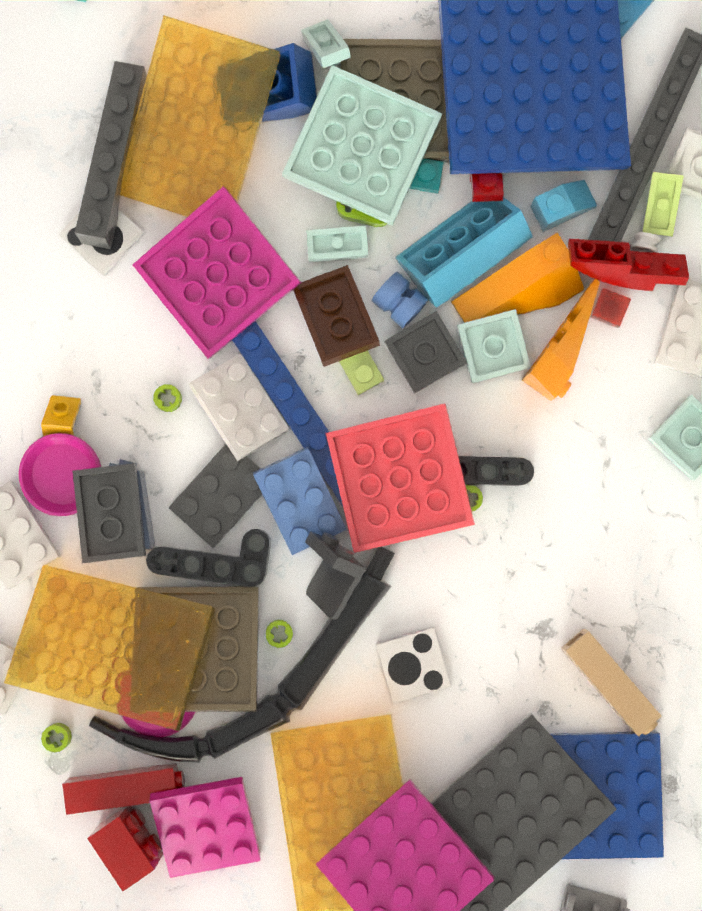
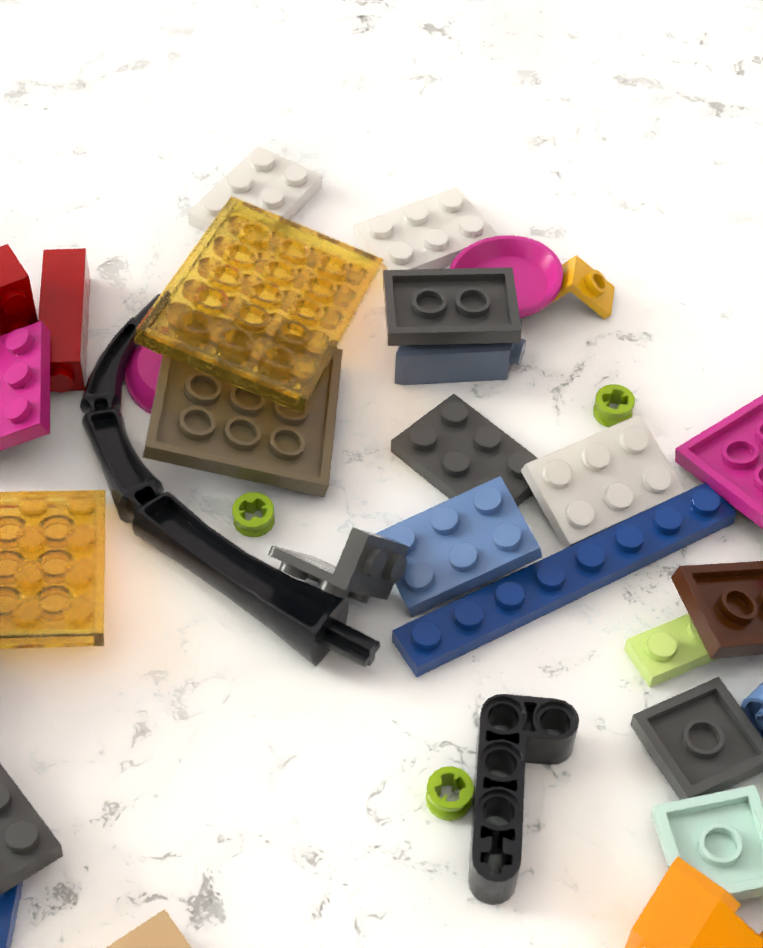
camera: 90 degrees right, 35 degrees down
(53, 746) = (145, 254): lime bush -> none
(208, 560) = (359, 474): black beam -> none
(400, 478) = (490, 667): coral plate -> none
(413, 665) = (176, 690): white tile -> none

